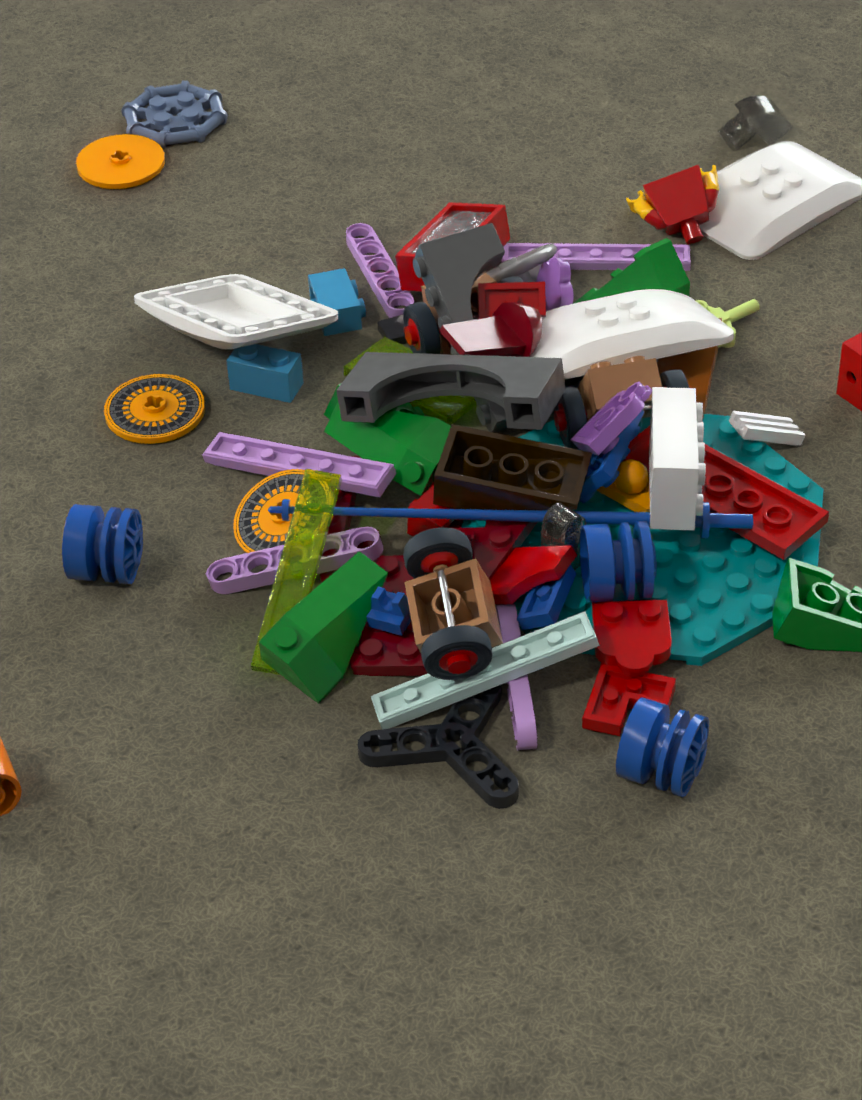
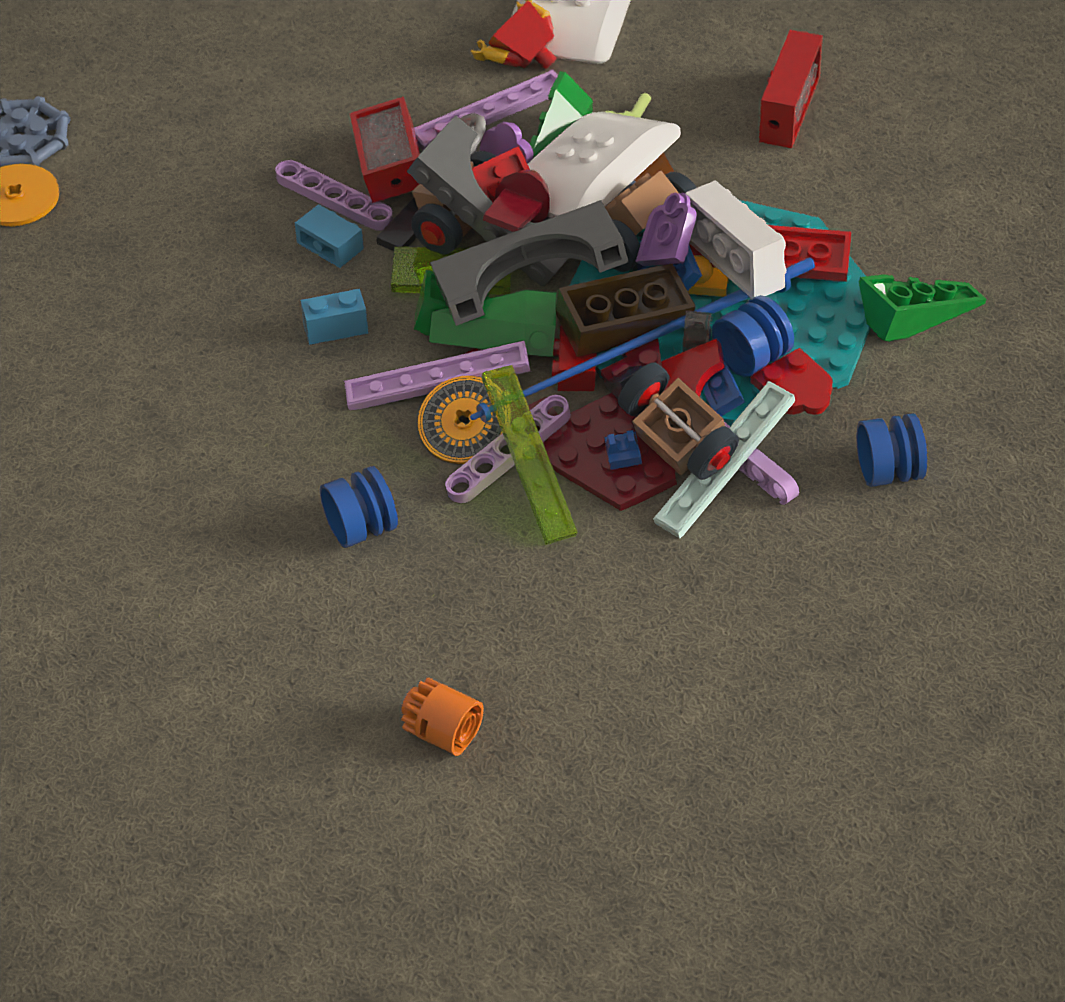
camera: 35 degrees left, 5 degrees up
(154, 408) = (248, 398): piece -> none
(234, 311) = (272, 278): white wedge -> none
(322, 630) = (587, 490): green wedge -> none
(438, 750) = (733, 531): black piece -> none
(617, 693) = (819, 432): red plate -> none
(766, 428) = (748, 189): white tile -> none

